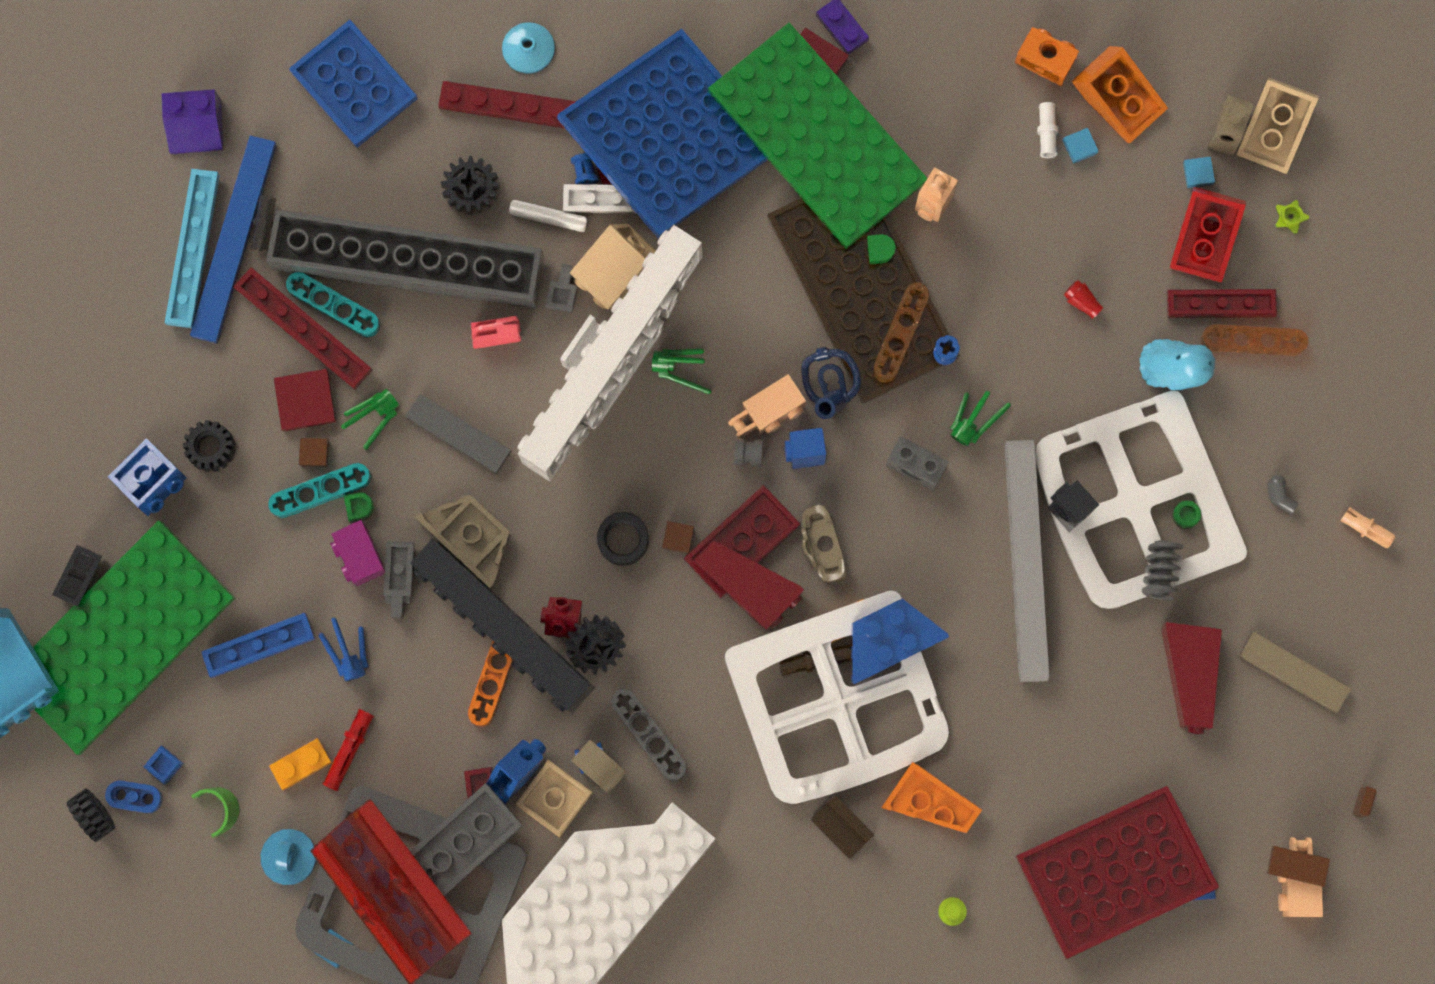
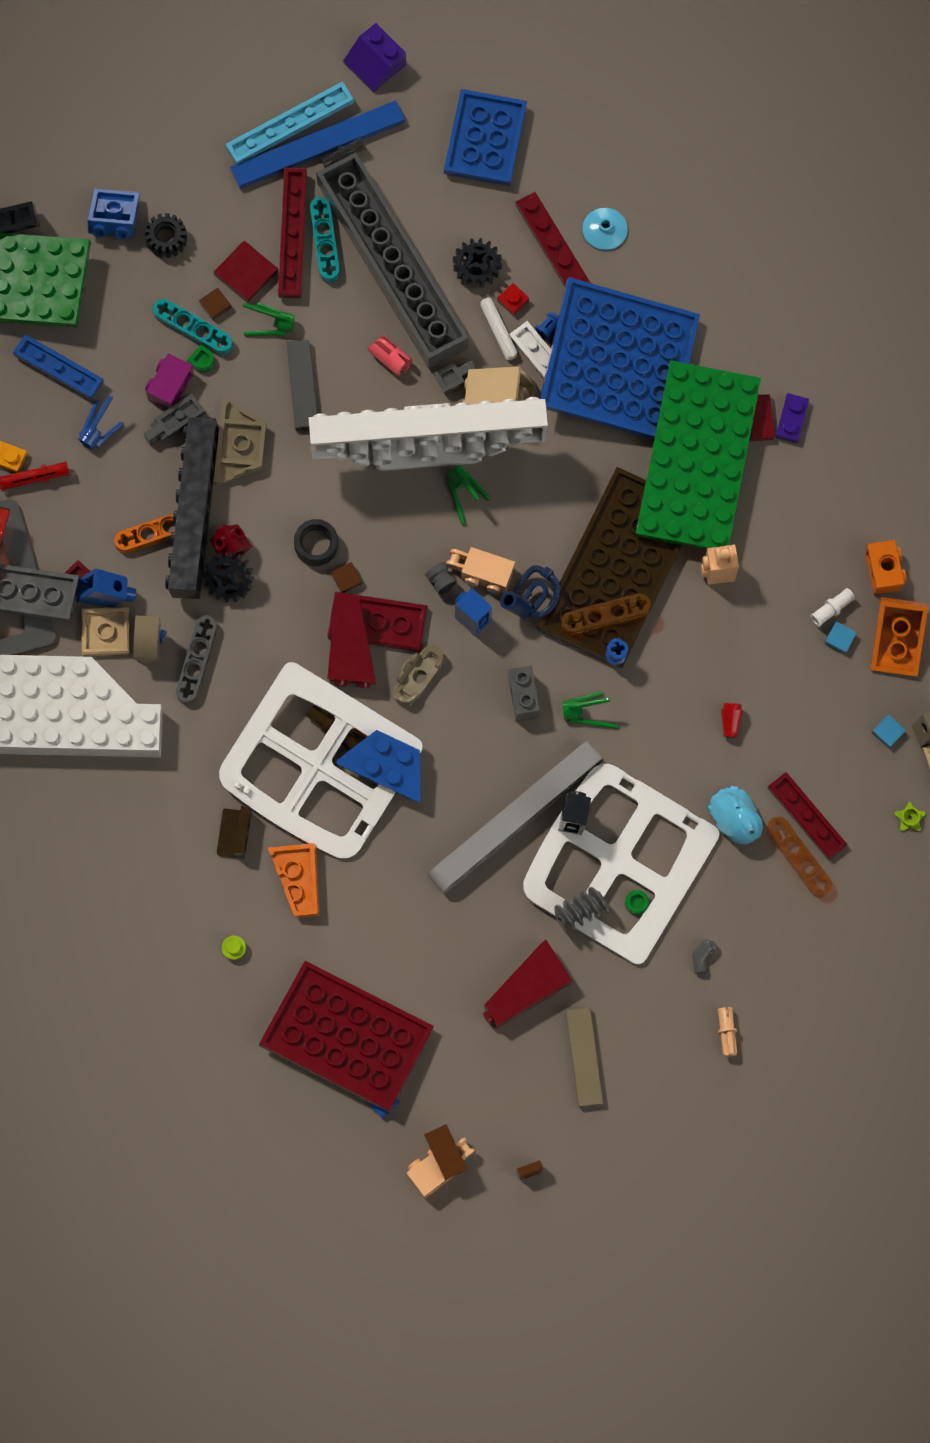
camera: 45 degrees right, 5 degrees down
(530, 181) = (513, 299): none -> red plate
(880, 248) = (653, 557): green tile -> none
(1207, 234) = (848, 768): red slope -> none

